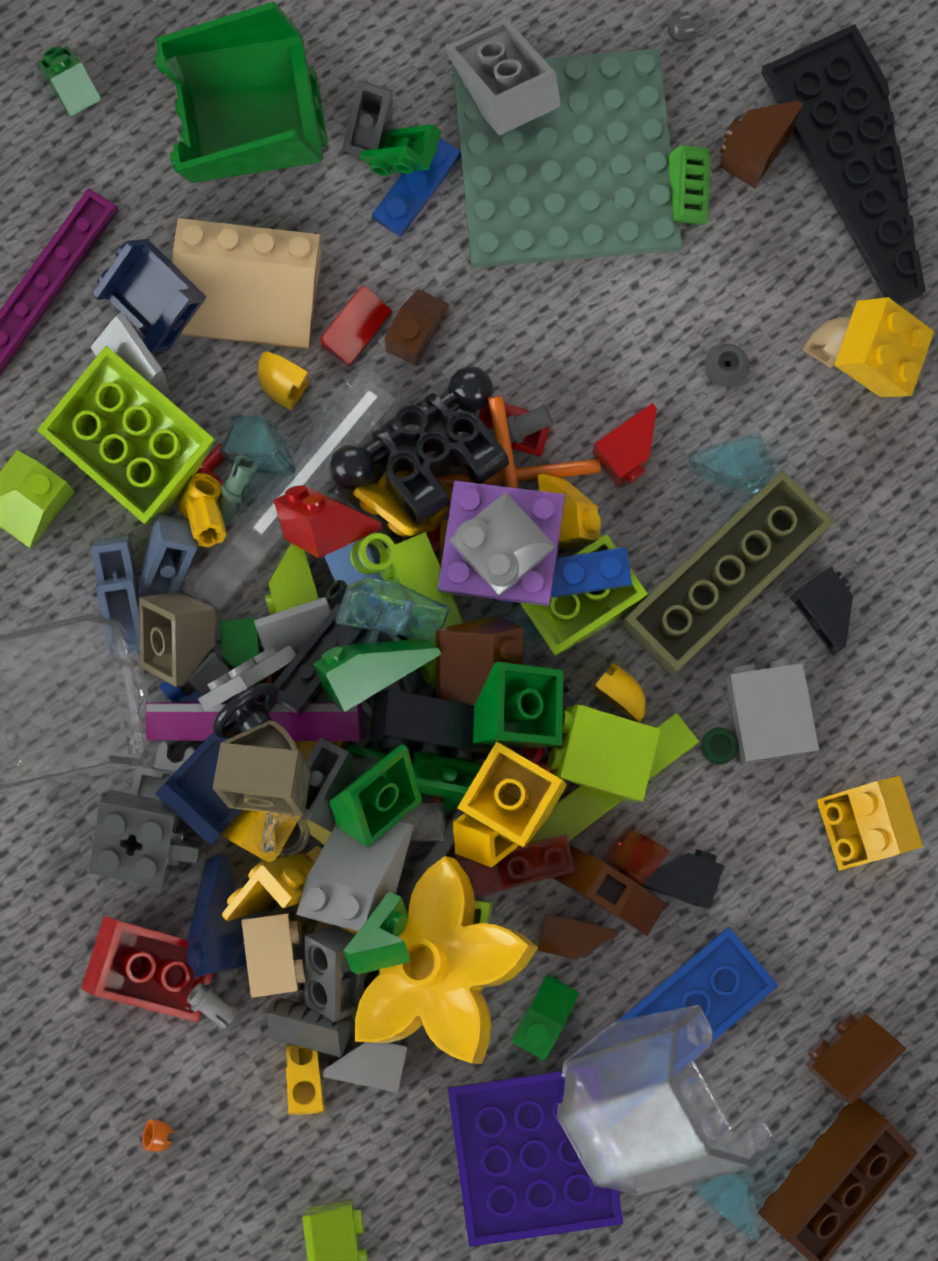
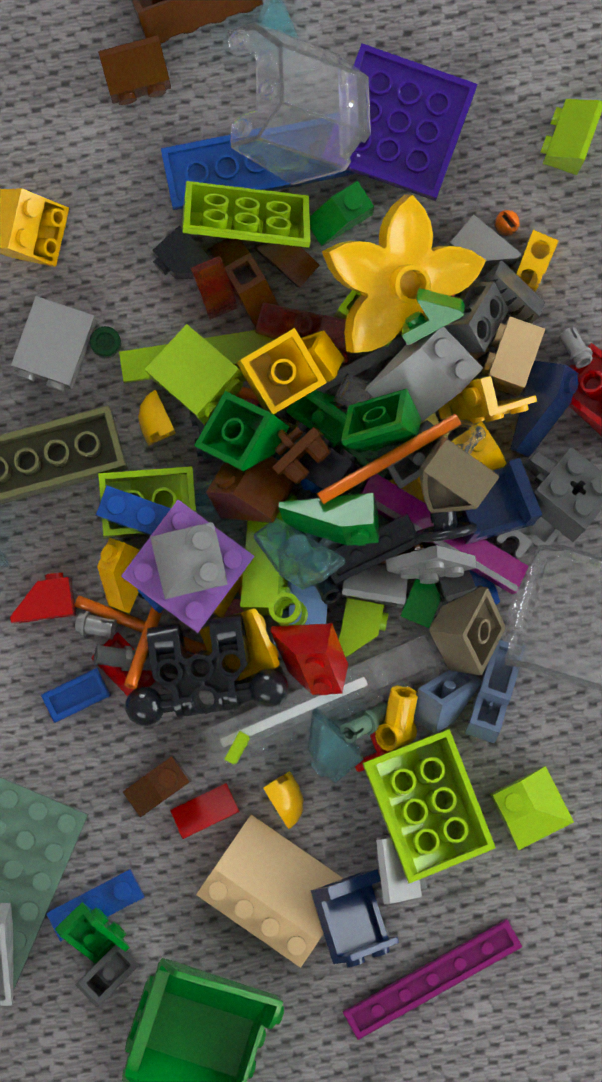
camera: 150 degrees left, 5 degrees up
(346, 758) = (389, 458): none -> orange piece
(352, 392) = (237, 748): none -> lime tile
(362, 1102) = (503, 226): none -> orange hinge
(437, 731) = (311, 443): none -> reddish brown hips
(547, 372) = (75, 695): none -> blue tile
(566, 449) = (95, 625): none -> light grey pin
(643, 951) = (246, 214): none -> lime slope

